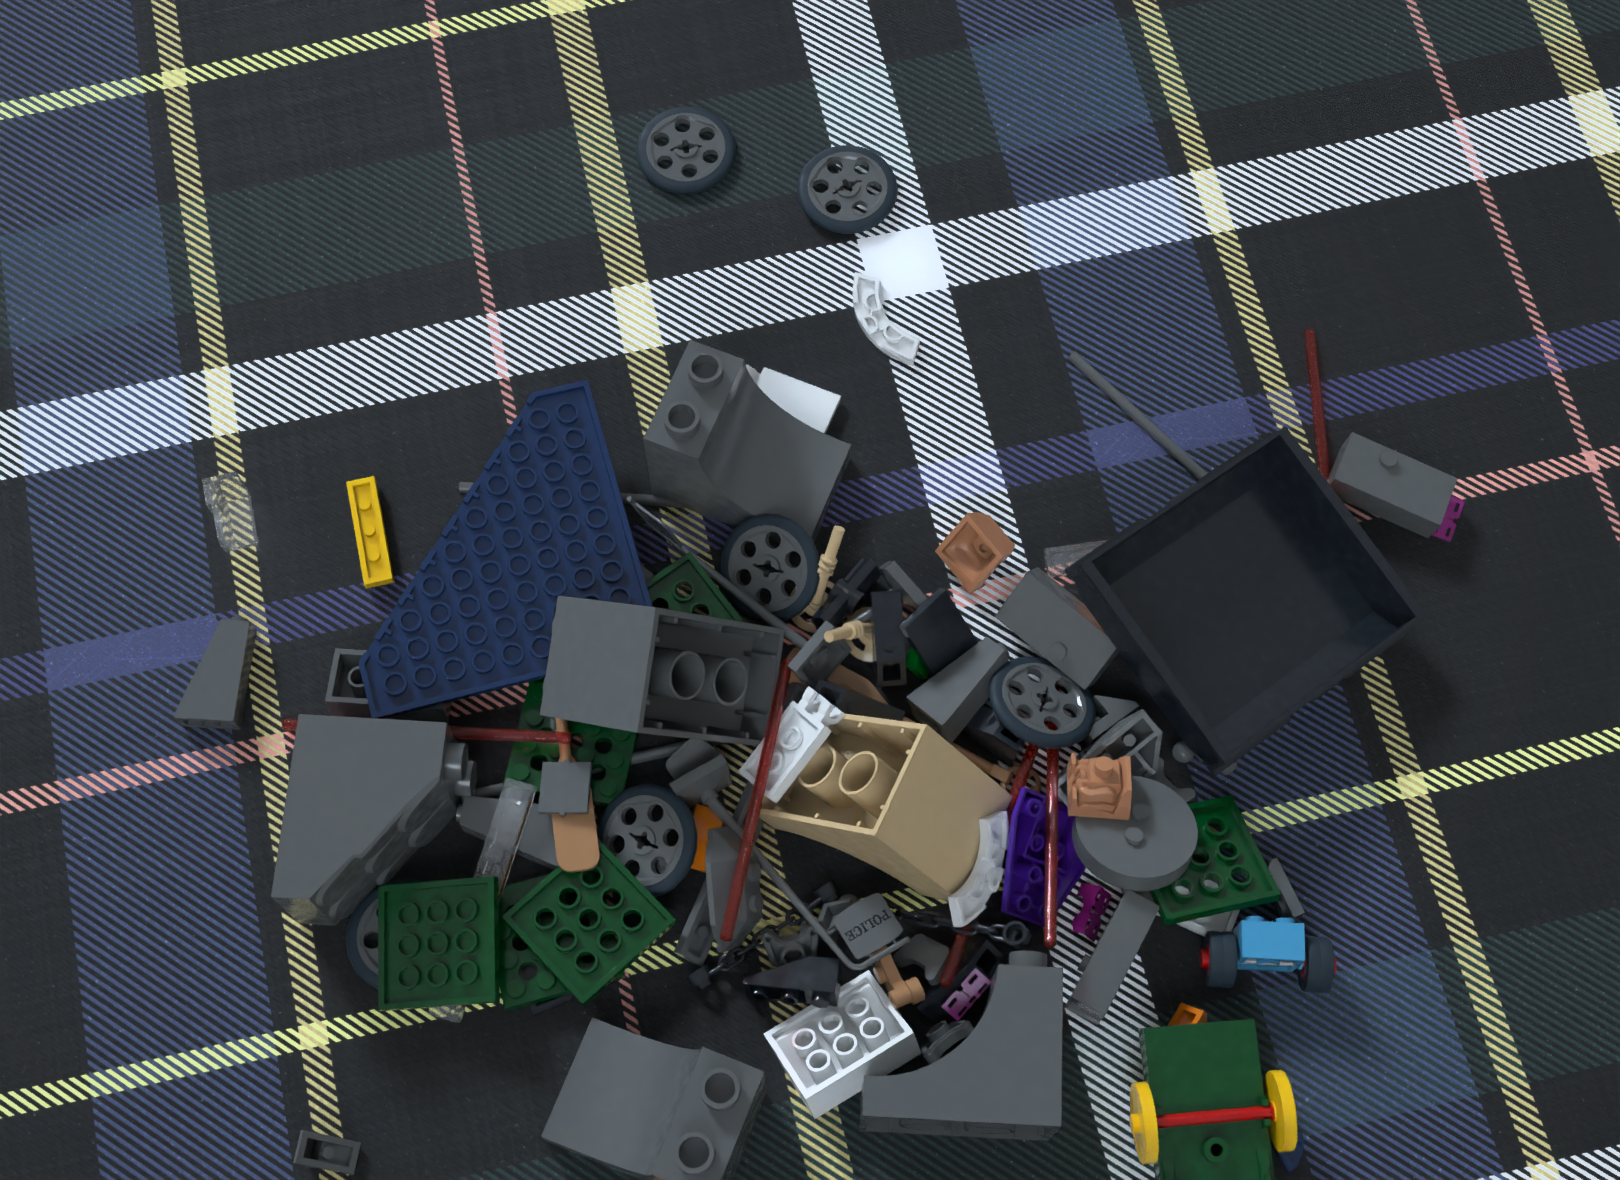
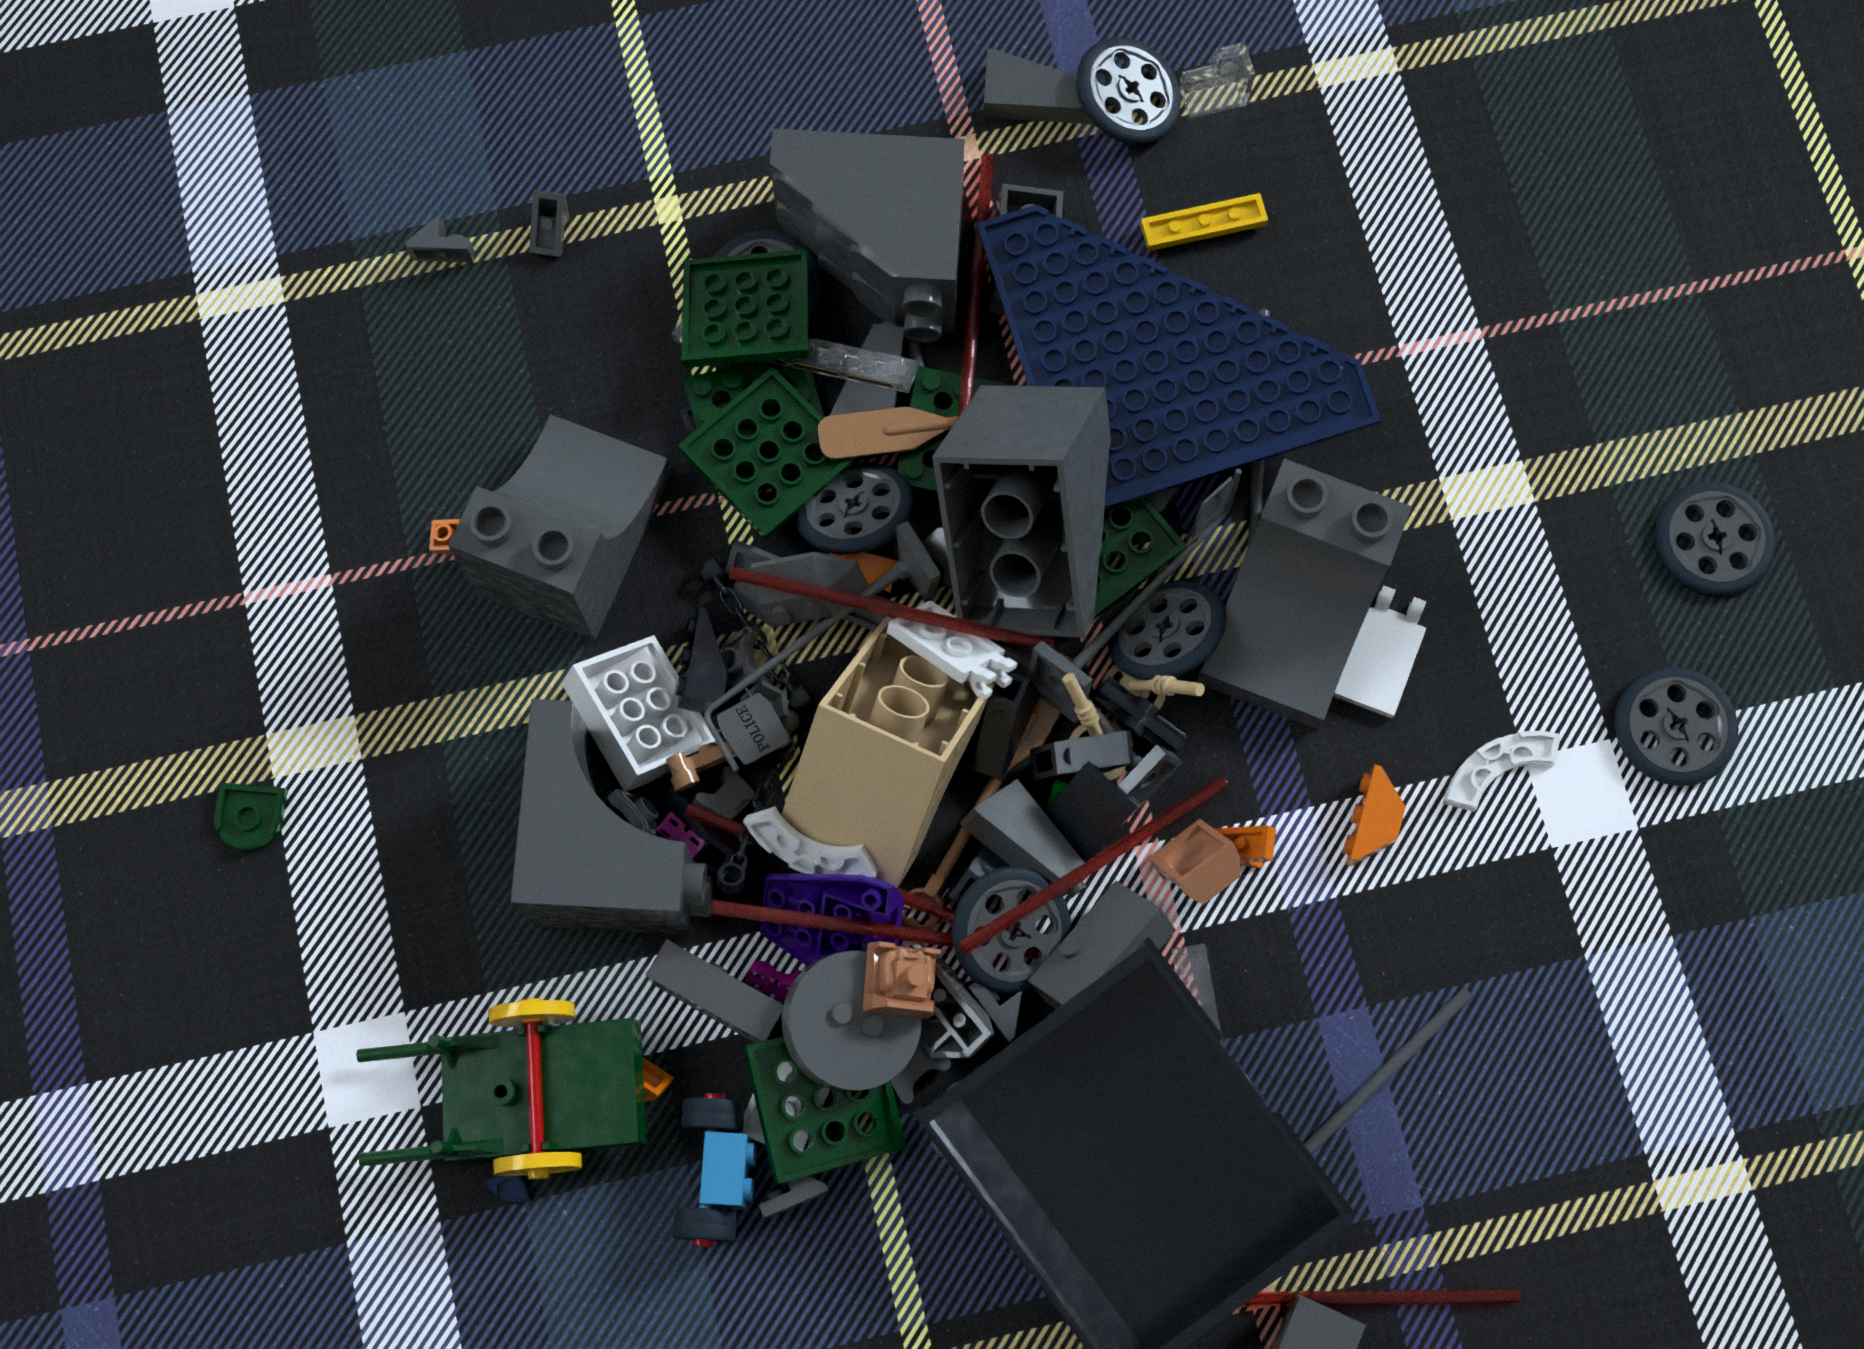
camera: 90 degrees right, 5 degrees up
(231, 591) = (1093, 95): none -> wedge
(565, 788) = (908, 421): dark grey piece -> none
(931, 413) = (1376, 818): none -> orange slope
(958, 503) = (1252, 843): none -> orange slope
(987, 634) = (1092, 865): none -> clear red piece

